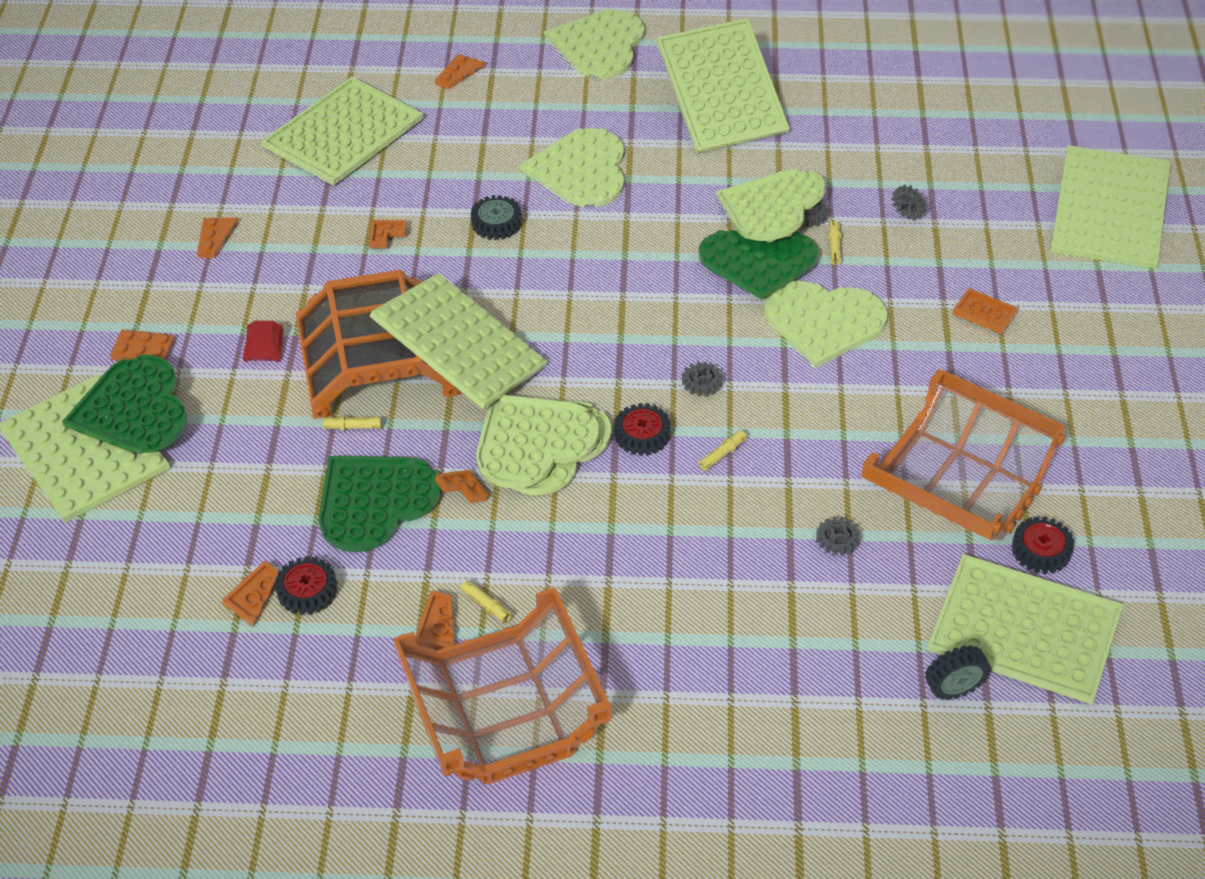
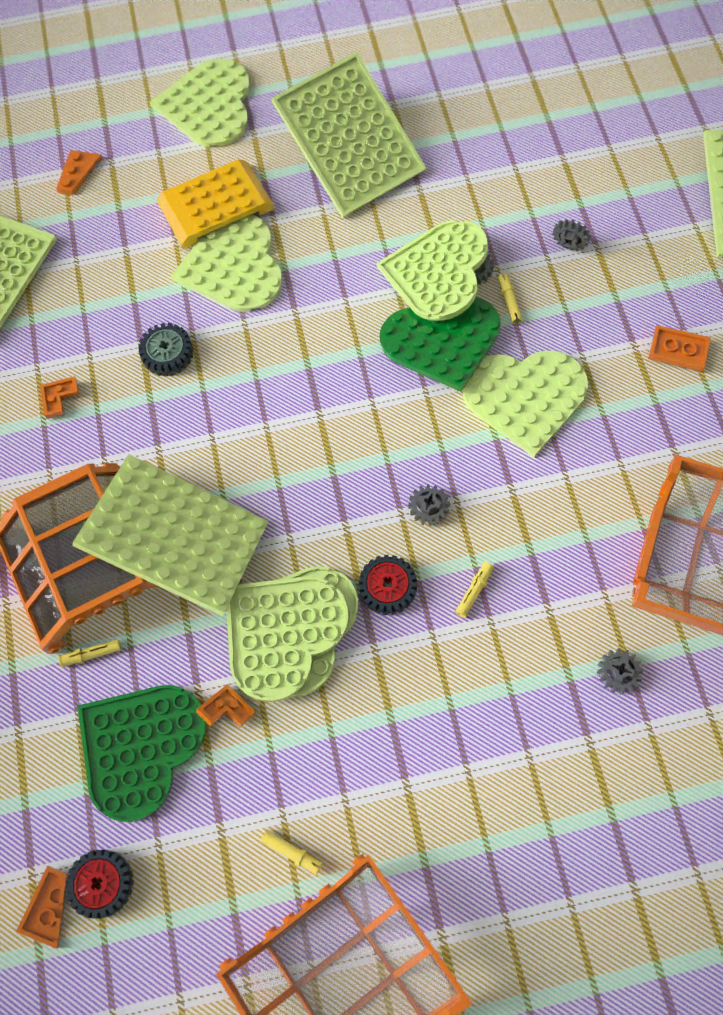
camera: 10 degrees left, 20 degrees up
(436, 622) = (249, 896): orange wing -> none
(578, 115) = (213, 201): none -> yellow slope

